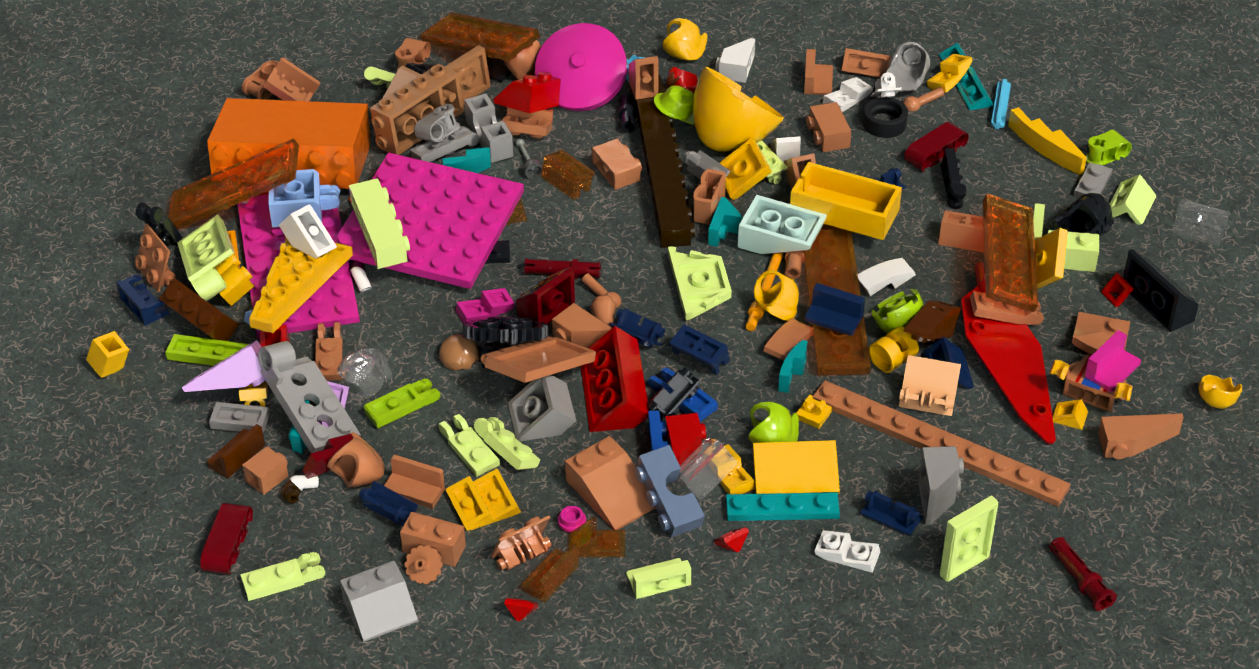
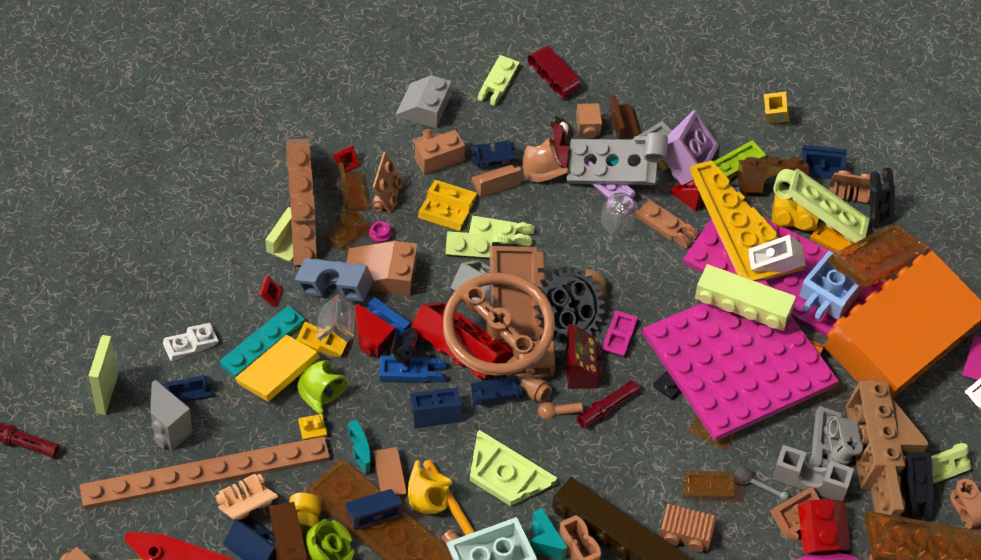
camera: 130 degrees right, 10 degrees up
(401, 402) = (575, 222): lime hinge -> none
(474, 161) = (787, 431): teal slope -> none
(587, 354) = (505, 331): none -> nougat piece
(607, 575) = (301, 200): none -> nougat arch

